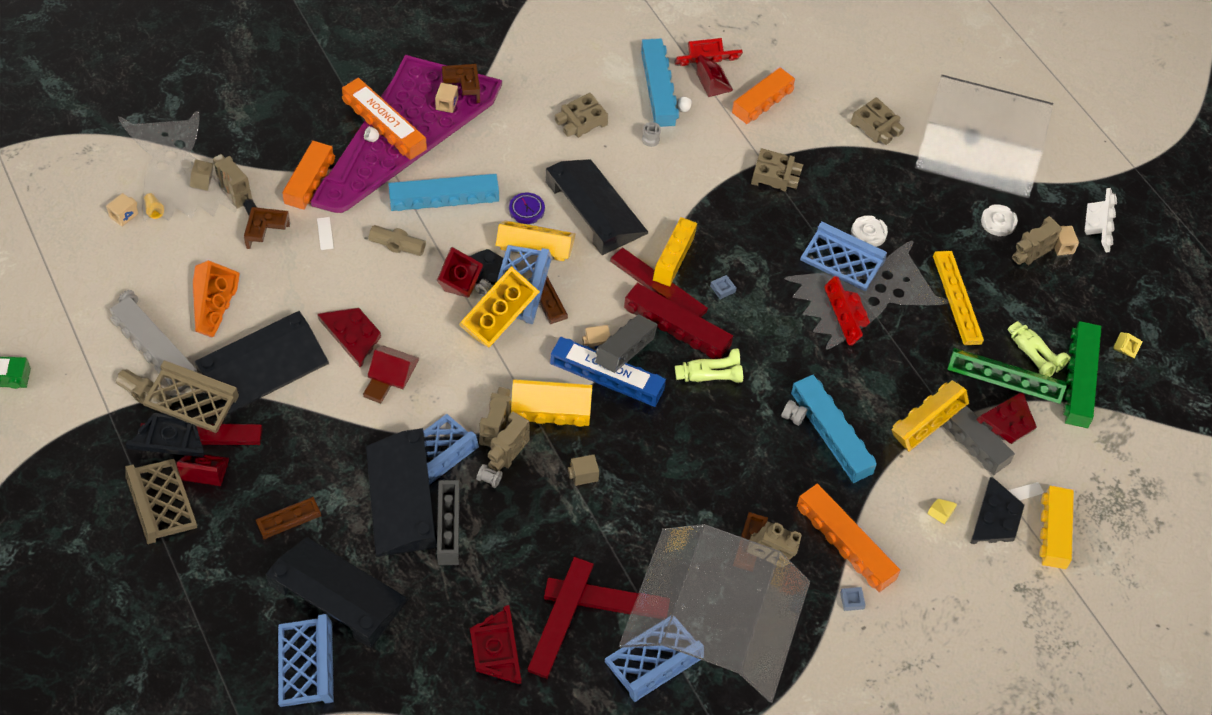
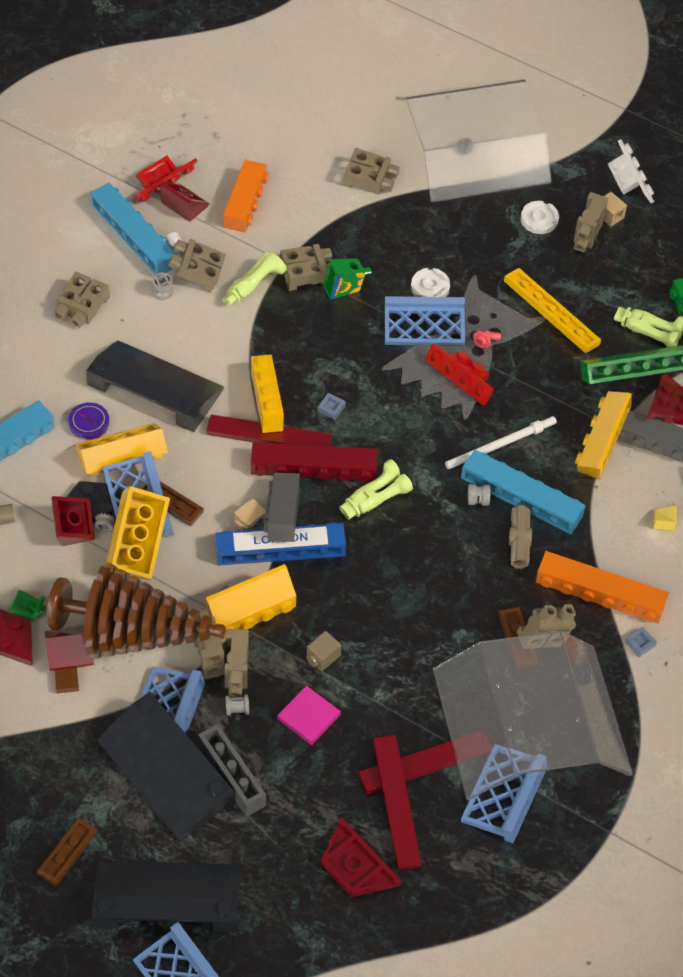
camera: 30 degrees left, 0 degrees up
(384, 320) = (27, 605): none -> green bracket
(440, 359) = (127, 615): none -> reddish brown plant
(540, 513) = (308, 715): none -> dark pink tile
(688, 128) = (197, 263): none -> dark tan hips
(717, 162) = (244, 286): none -> yellowish green piece
(800, 192) = (345, 277): none -> green torso
(806, 462) = (520, 537): none -> dark tan piece
(880, 383) = (534, 428): none -> white bar
(882, 292) = (483, 339): none -> coral plate

